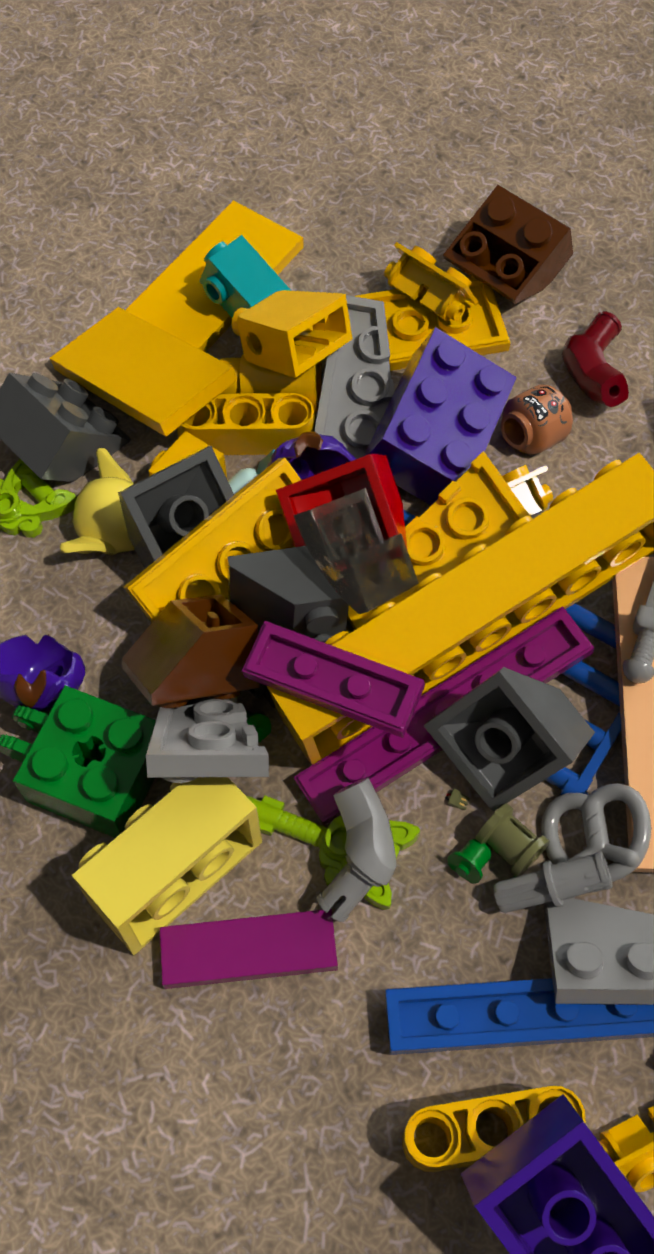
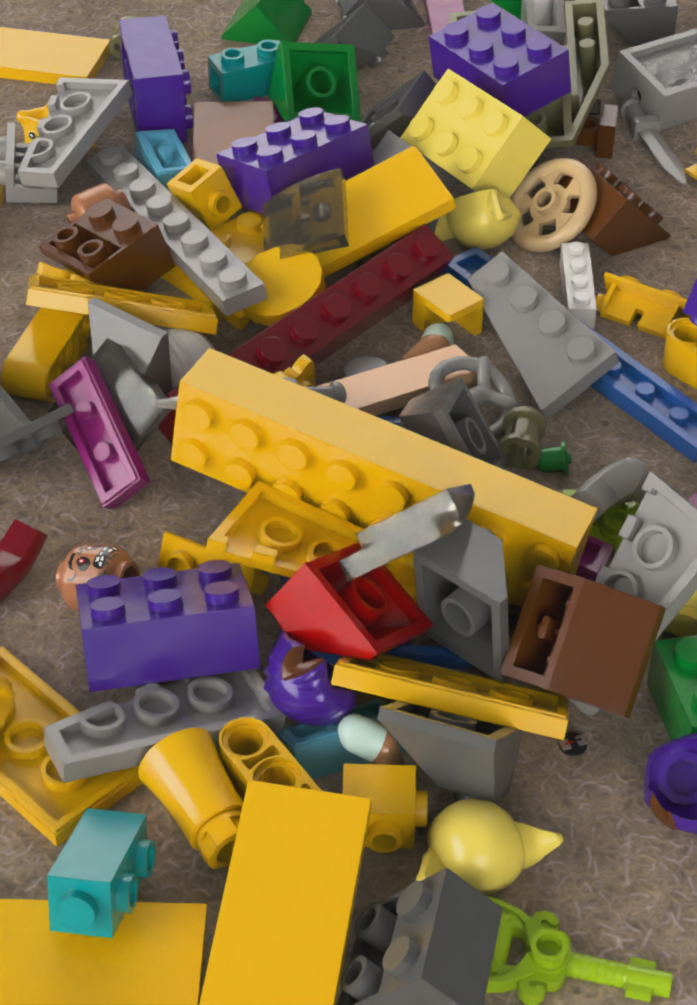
camera: 125 degrees left, 20 degrees down
(293, 330) = (164, 755): yellow torso -> none
(334, 679) = (538, 500): magenta tile -> none
(554, 883) = (538, 395): light grey axle -> none

